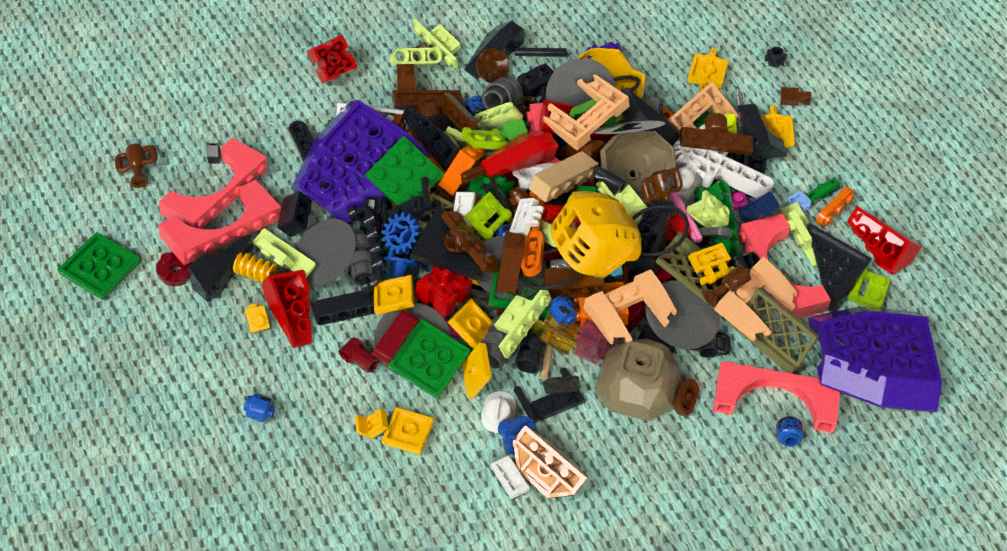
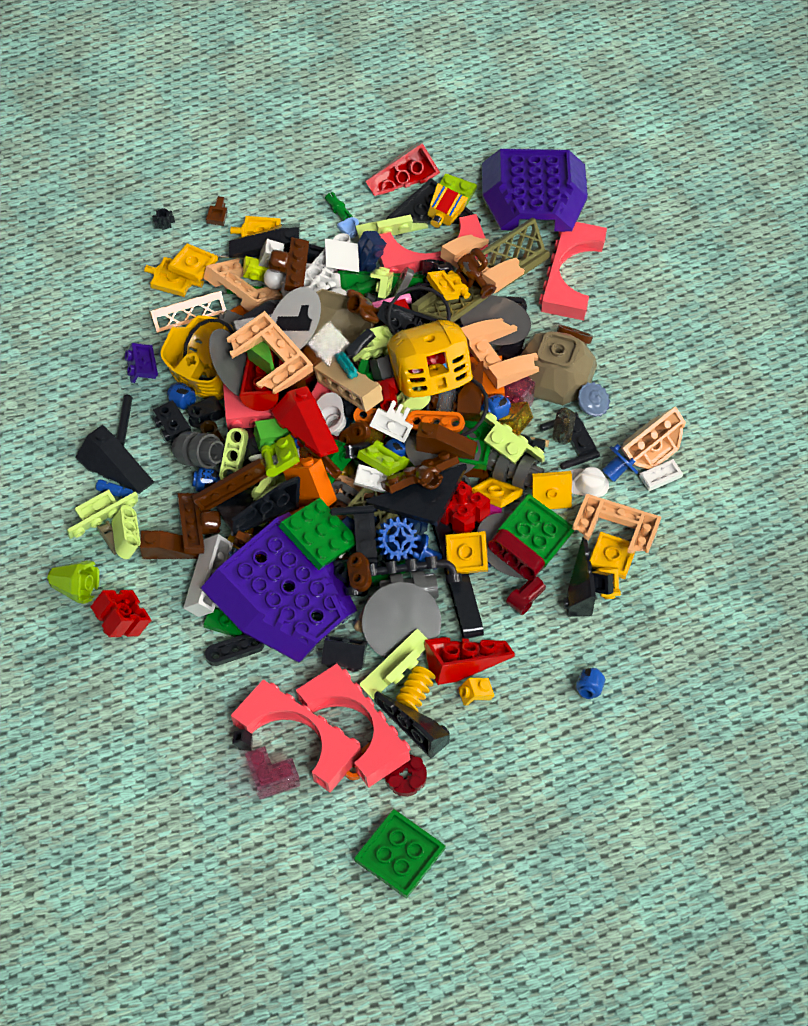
camera: 85 degrees left, 5 degrees up
(136, 160) = (249, 823): reddish brown piece -> none
(180, 167) = (268, 777): none -> clear pink brick
(364, 207) = (358, 570): none -> reddish brown plate
(366, 32) = (75, 580): none -> lime cone
(366, 413) = (603, 582): none -> black plate
(367, 399) = (581, 590): none -> black wedge
(443, 456) = (595, 508): none -> light nougat wedge
(465, 51) = (116, 490): none -> blue axle
(492, 64) = (145, 460): reddish brown dish -> none
(577, 167) = (346, 365): none -> teal axle
(597, 410) = (593, 399): none -> sand blue piece
(602, 151) = (328, 343): none -> clear piece
(672, 77) = (173, 308): none -> light nougat fence
(722, 75) = (192, 262): none -> yellow plate
(738, 125) = (265, 253): none -> white brick
(741, 180) = (342, 255): none -> white sticker
(789, 431) = (609, 264): blue head -> none
(831, 269) = (445, 206): none -> torso
(835, 206) = (361, 199): orange plate -> none

